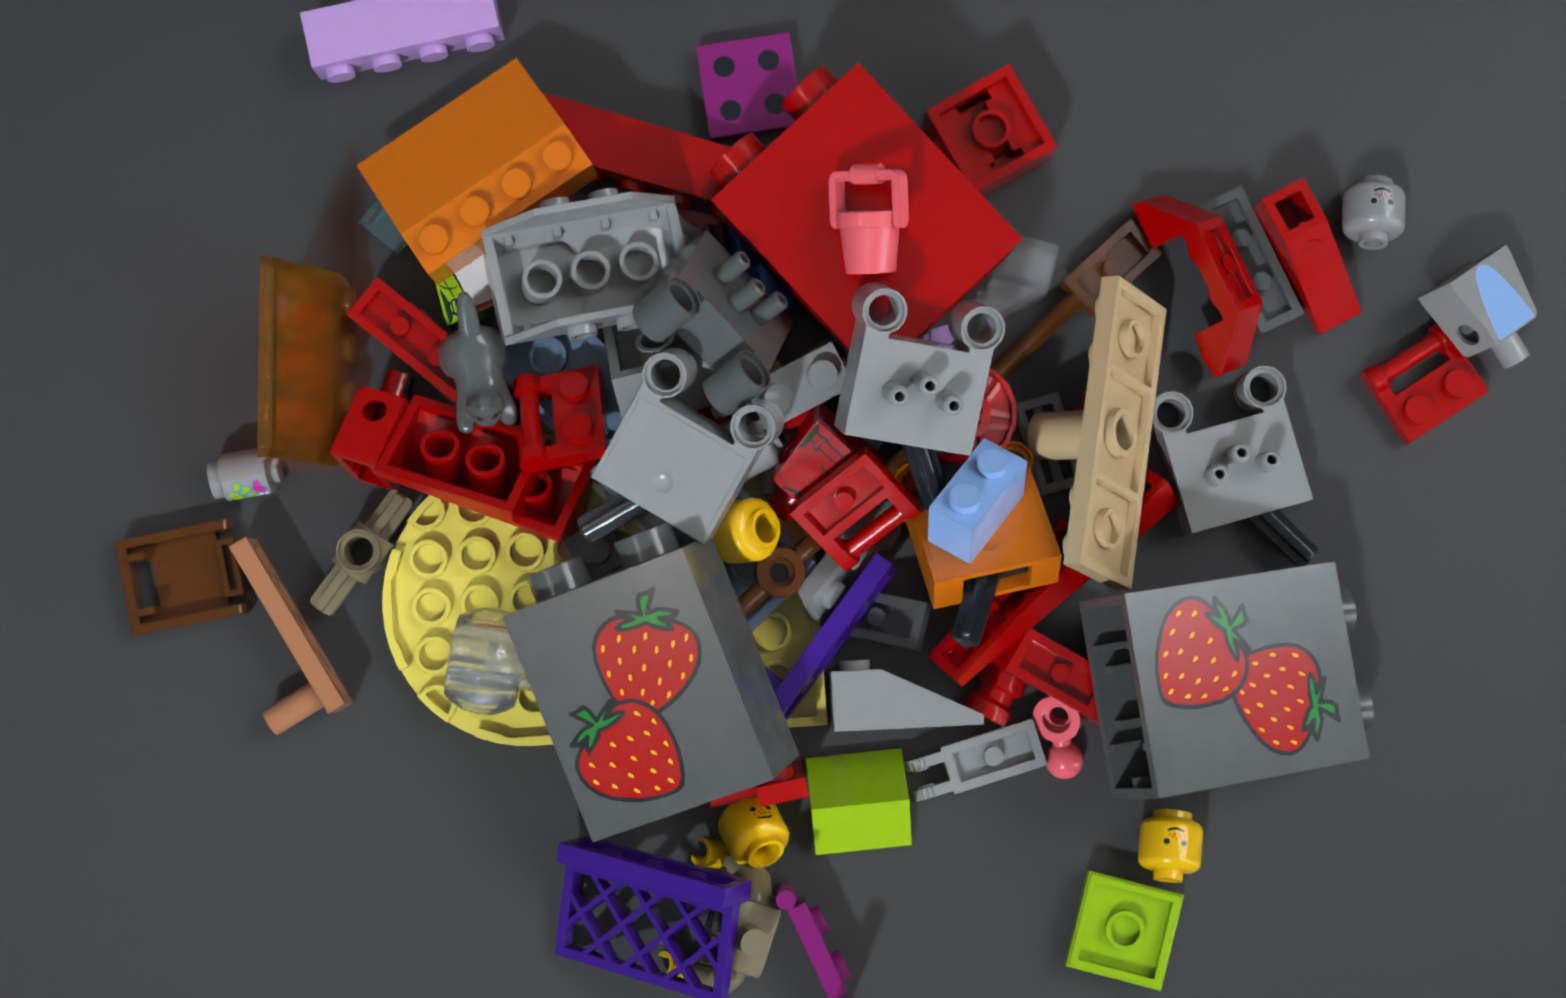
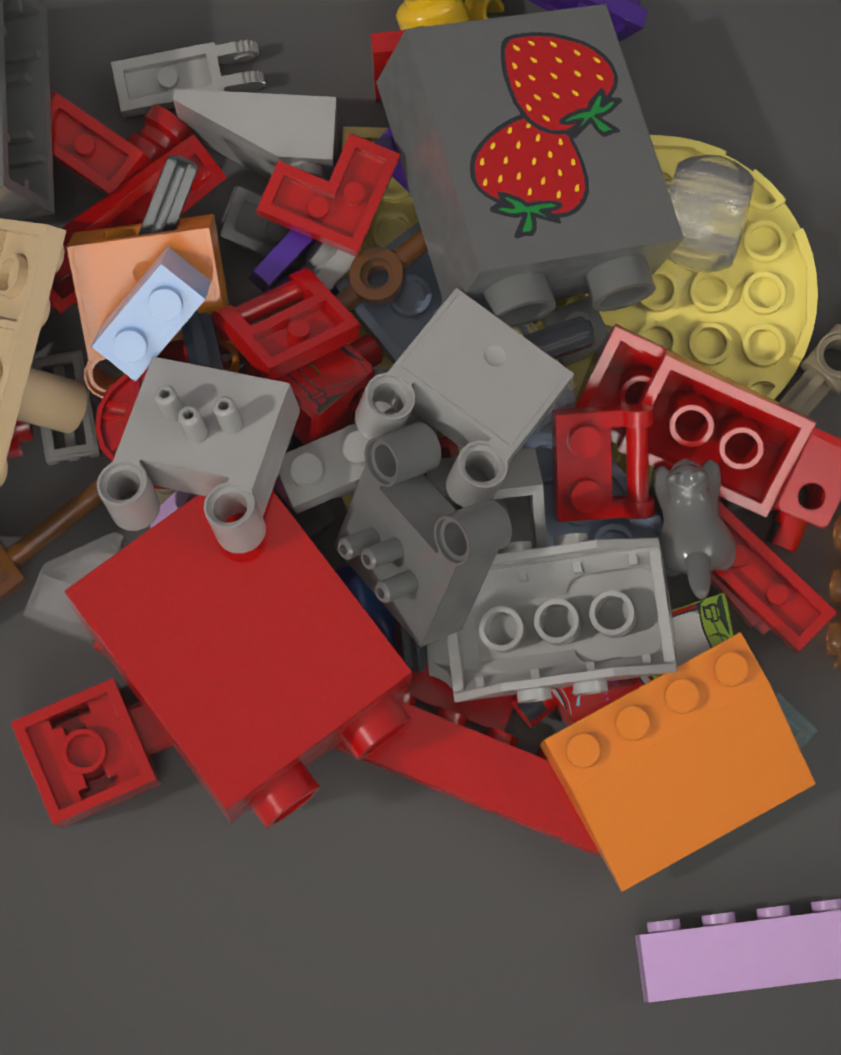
camera: 175 degrees left, 5 degrees down
(747, 85) = (356, 847): magenta tile -> none
(748, 532) = (403, 313): yellow head -> none
(822, 622) = (336, 209): none -> red plate
(859, 801) = (318, 48): lime slope -> none
(869, 236) = (234, 610): coral piece -> none
(1063, 756) = (92, 74): coral plate -> none

